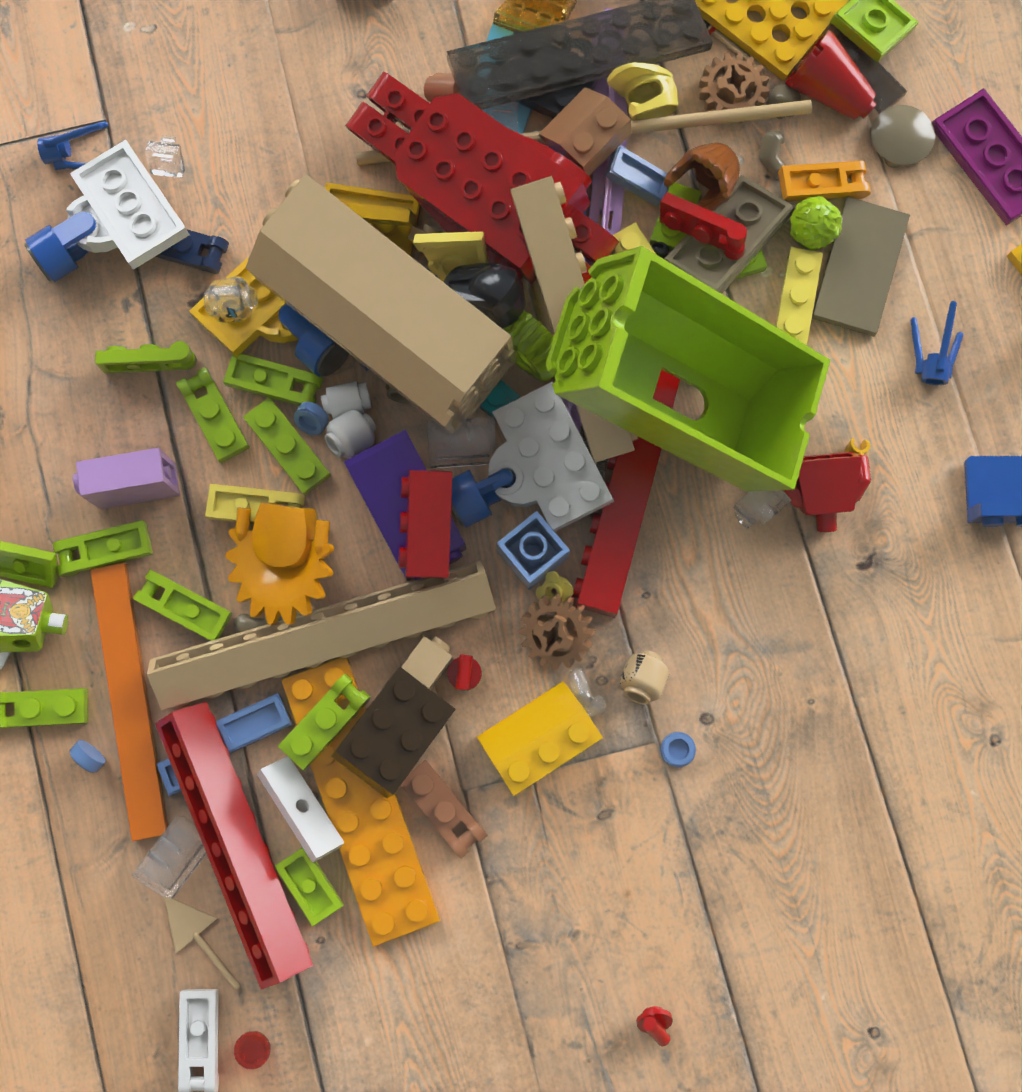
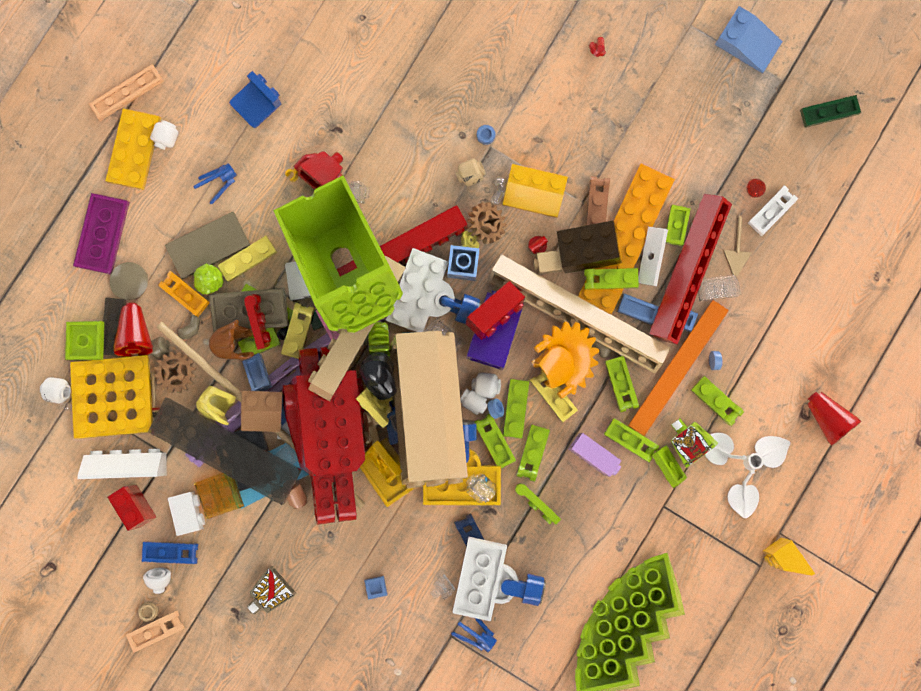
camera: 135 degrees left, 5 degrees up
(247, 87) = (375, 587): none -> medium blue tile

